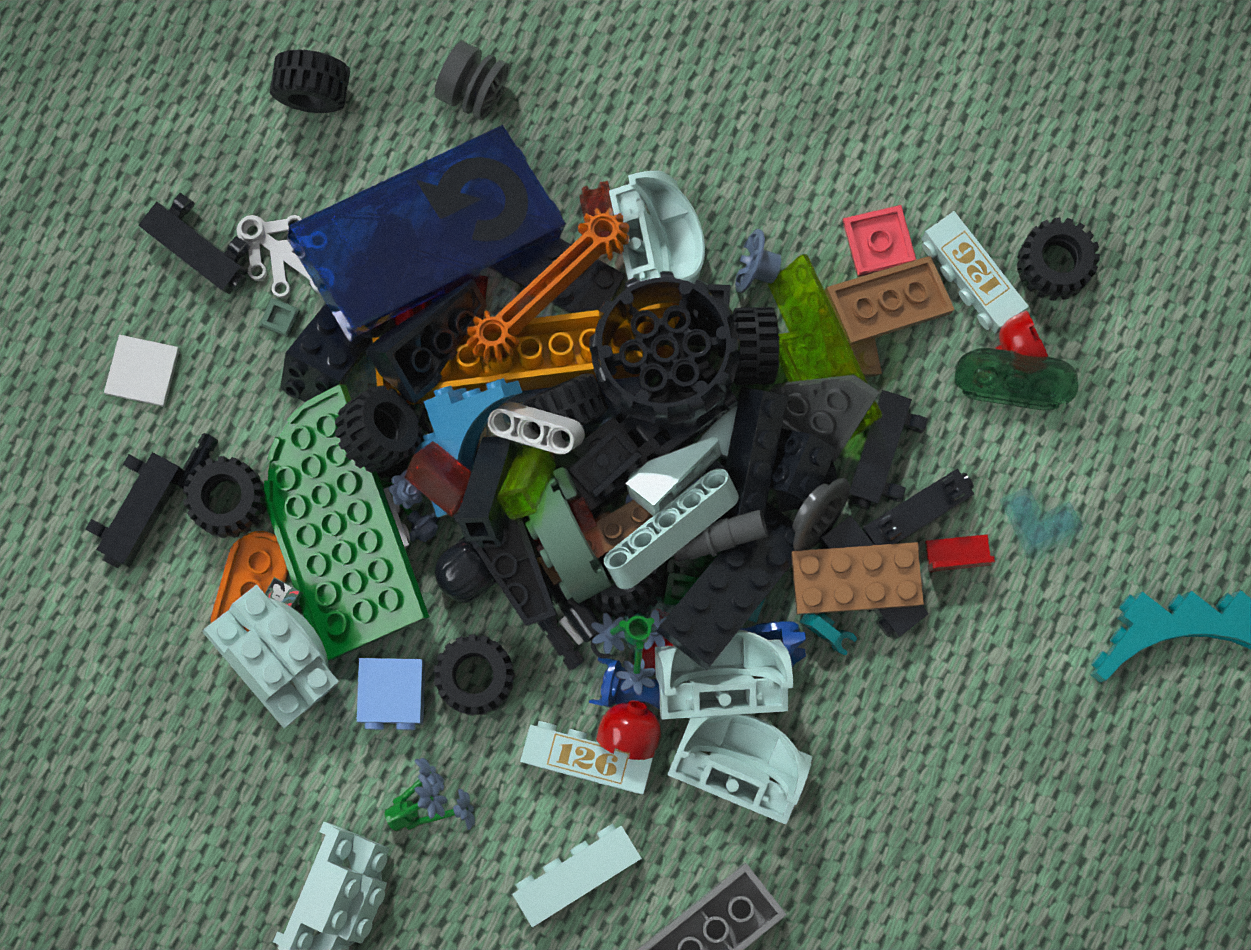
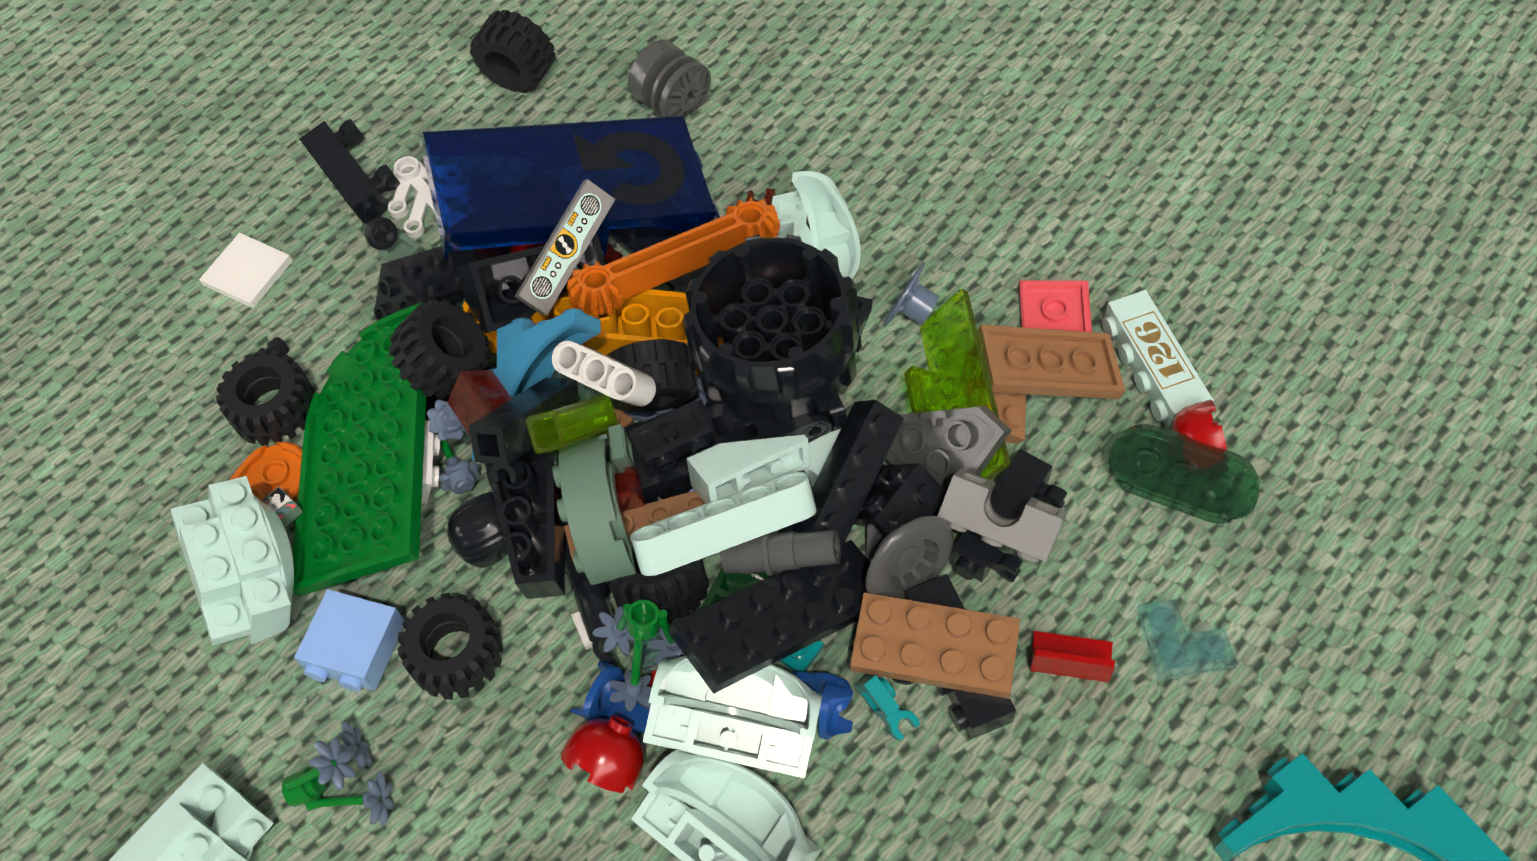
camera: 20 degrees right, 20 degrees down
(139, 510) = (174, 393): black brick -> none
(255, 307) = (385, 235): none -> black cone
(455, 306) = (565, 247): none -> tile
(561, 643) = (565, 638): black axle -> none
(583, 758) = (543, 779): light aqua brick -> none
(759, 345) = (883, 365): black tyre -> none
(908, 469) = (969, 507): none -> light grey arch
(920, 509) = (1039, 590): black brick -> none
(1075, 242) = (1254, 386): black tyre -> none

